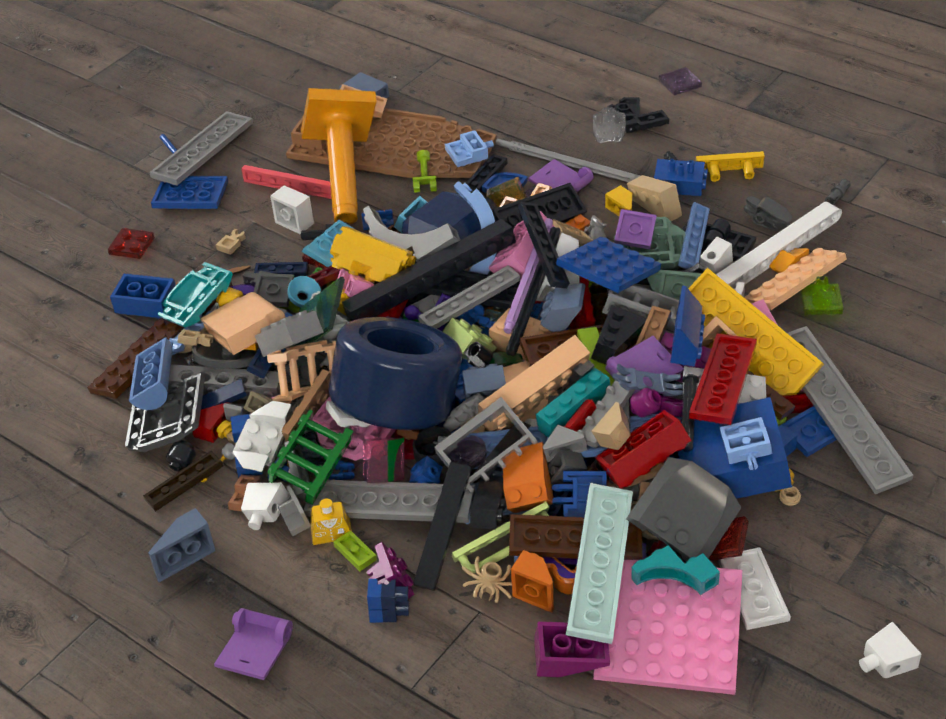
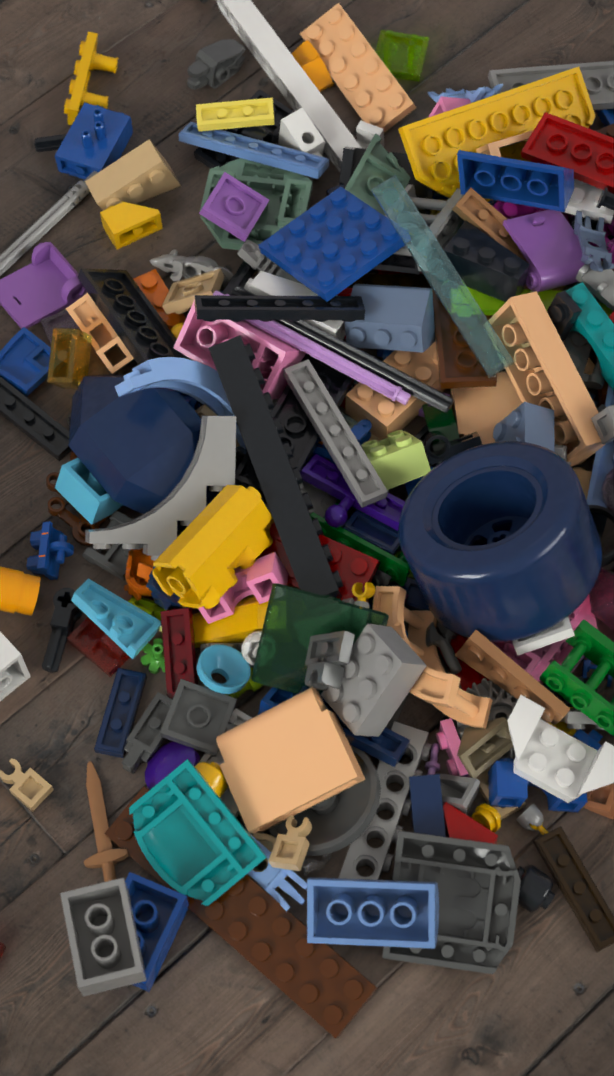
camera: 80 degrees left, 20 degrees up
(129, 267) = (103, 937): none -> light grey brick
(290, 308) = (324, 659): none -> dark grey plate
(590, 304) = (442, 276): none -> clear light blue plate
(716, 219) = (235, 114): none -> light yellow plate
(784, 323) = (473, 96): none -> light blue piece

